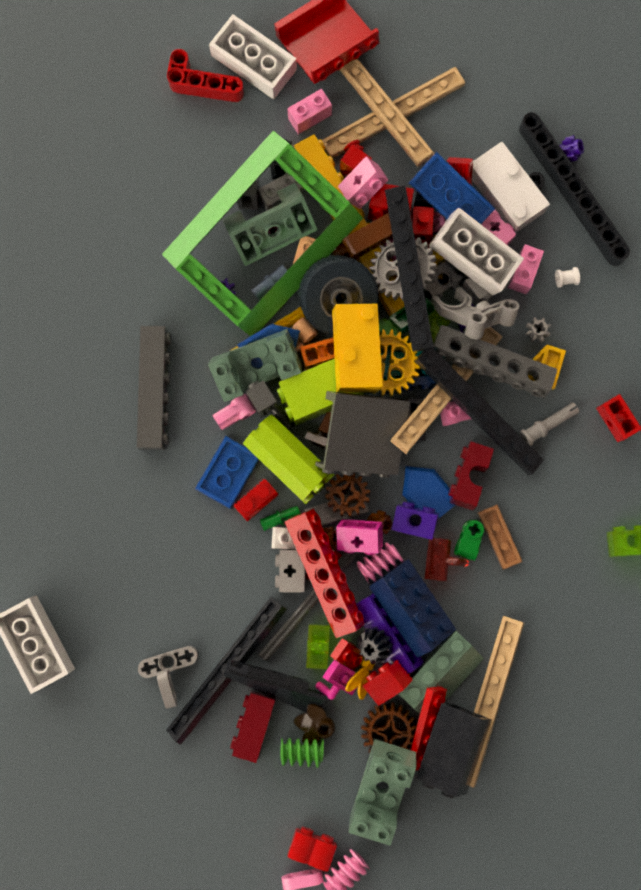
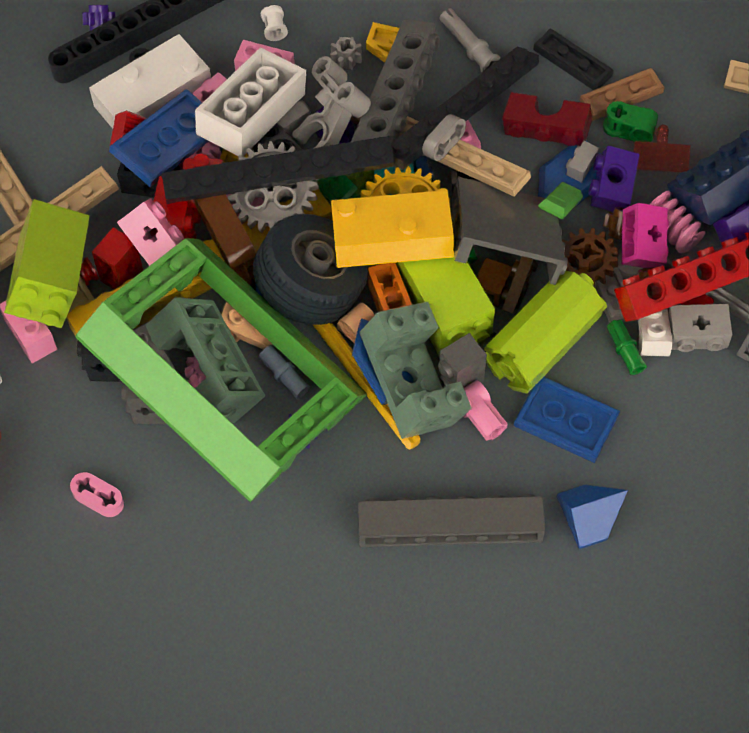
camera: 90 degrees left, 20 degrees down
(156, 480) = (591, 512): none -> slope
(184, 161) = (100, 489): none -> bright pink beam
(256, 500) = (605, 374): red brick -> none
(344, 114) = (47, 264): none -> lime brick
(395, 478) = (561, 200): none -> bright green tile
(433, 499) = (582, 161): none -> light grey piece
(442, 392) = (444, 137): none -> light grey beam
(532, 502) = (573, 59): none -> black tile

